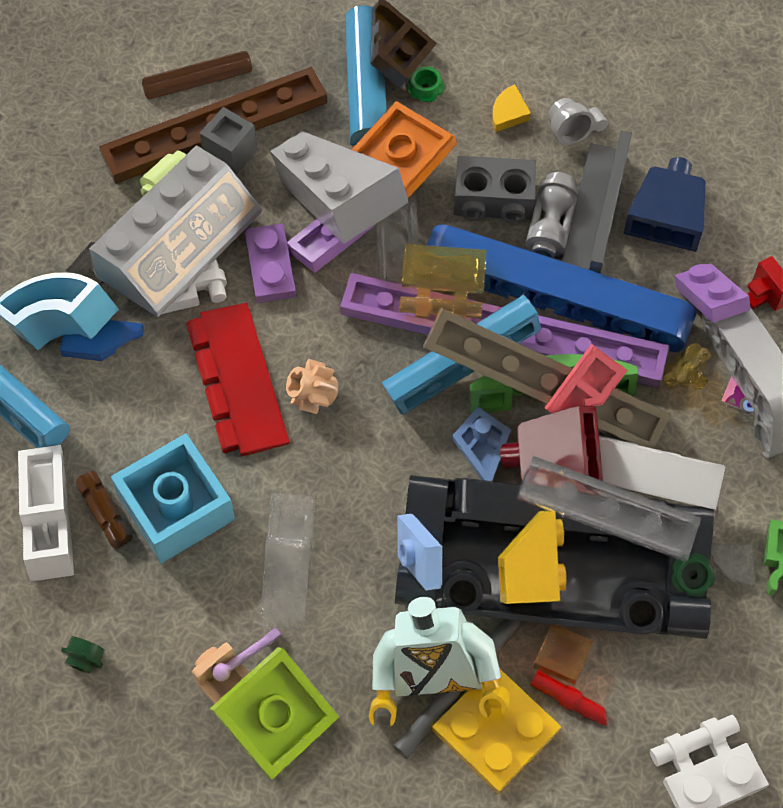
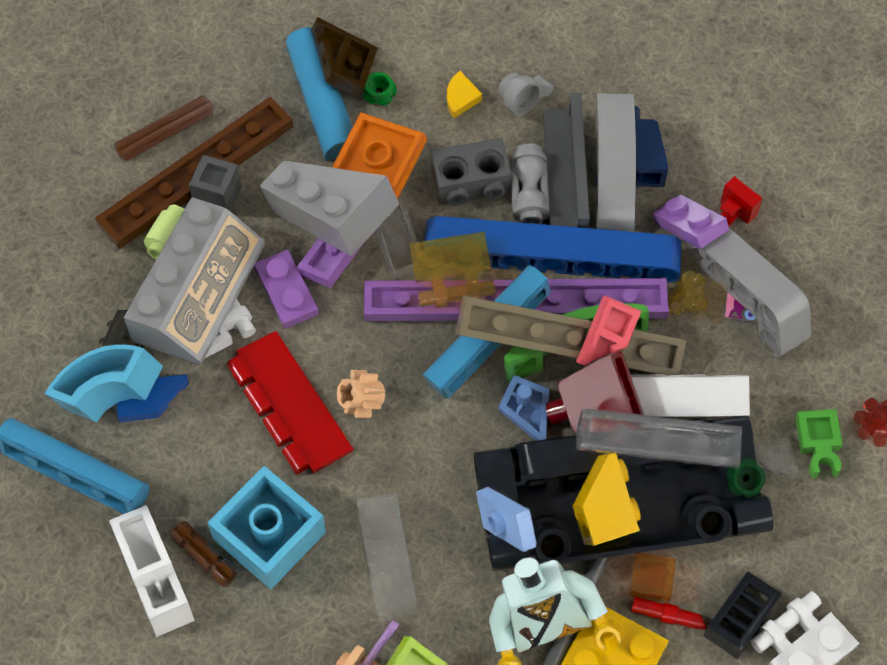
camera: 15 degrees left, 0 degrees up
(623, 740) = (725, 638): none -> black slope
(648, 212) = (616, 162): none -> light grey slope

